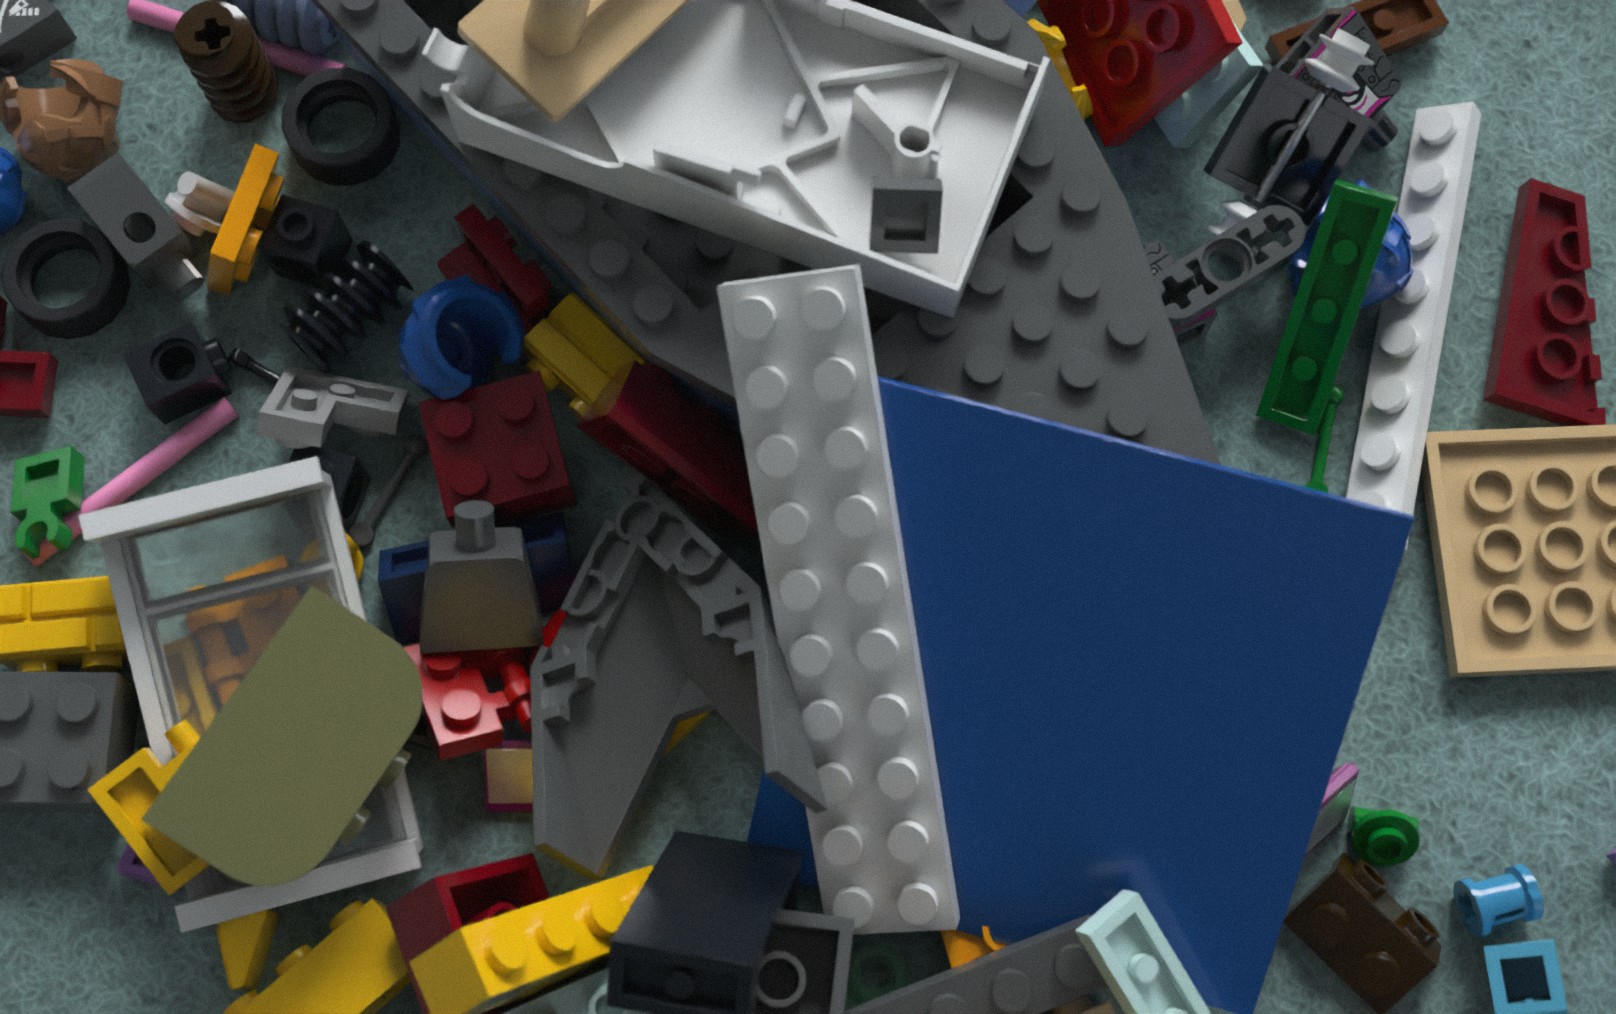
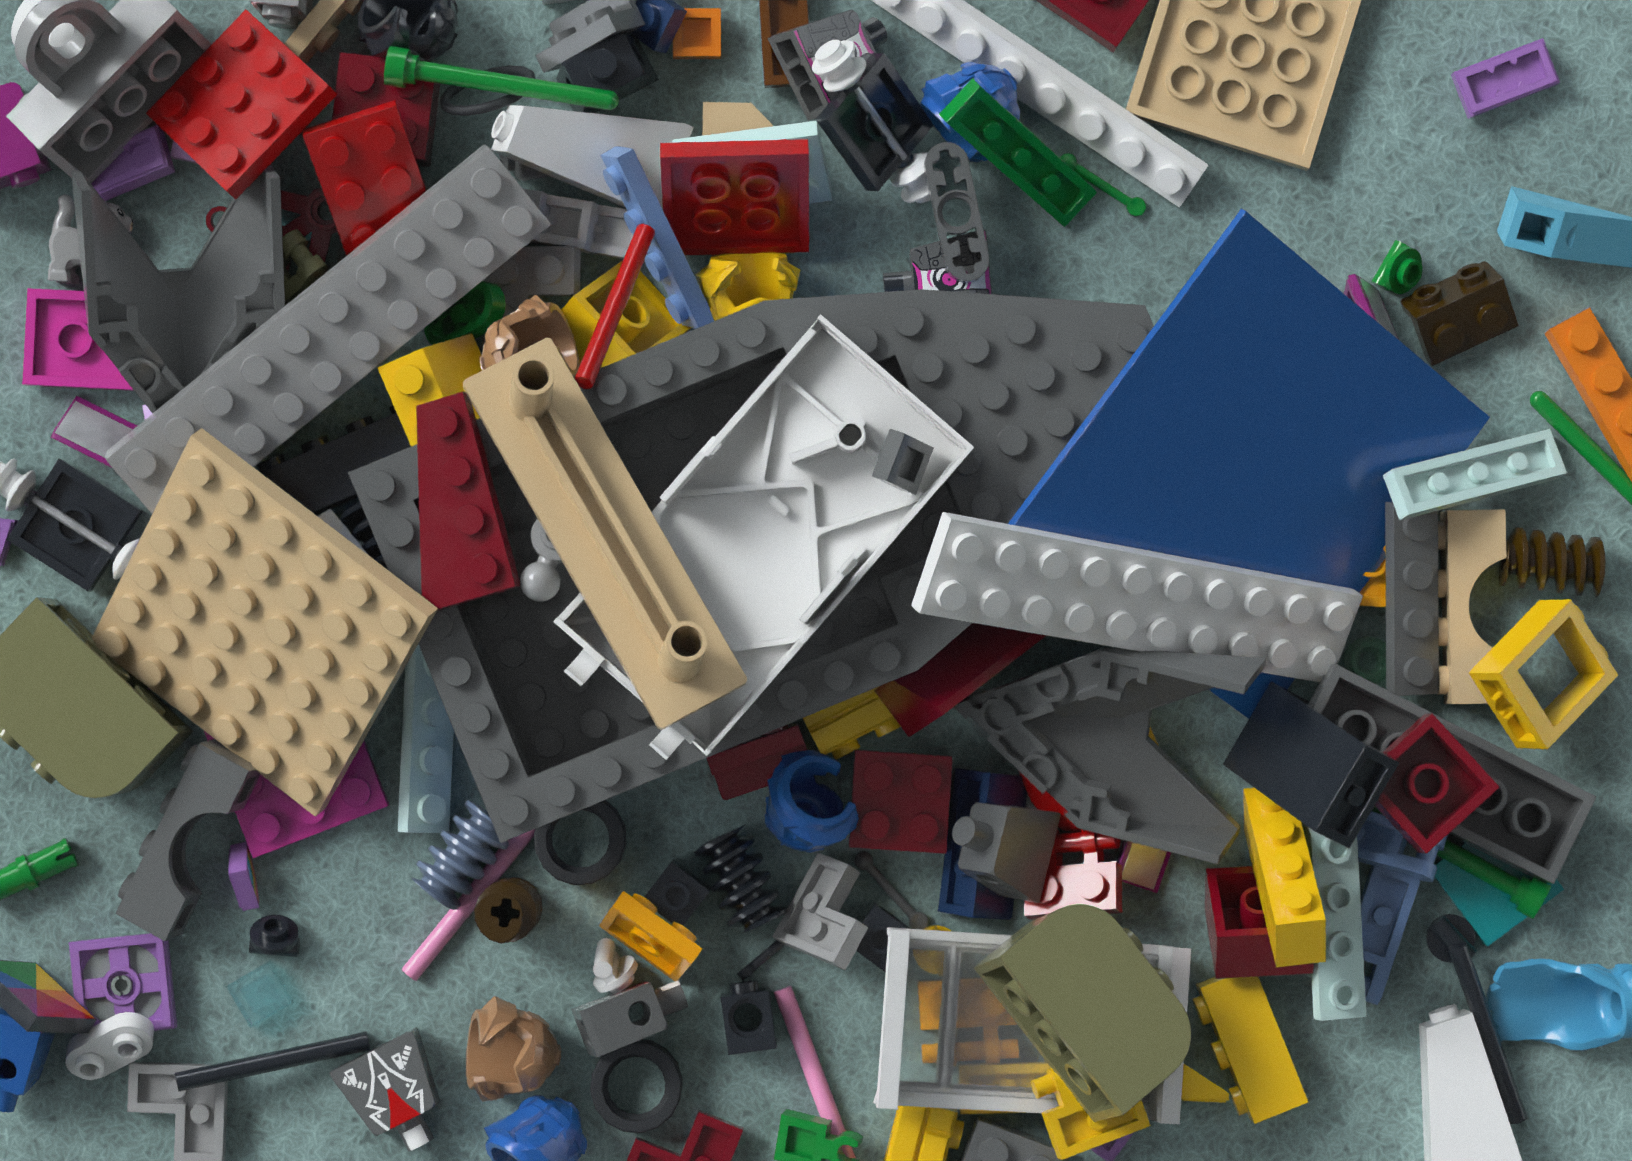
camera: 70 degrees left, 15 degrees up
(1498, 900) = (1472, 211): dark azure bush -> none

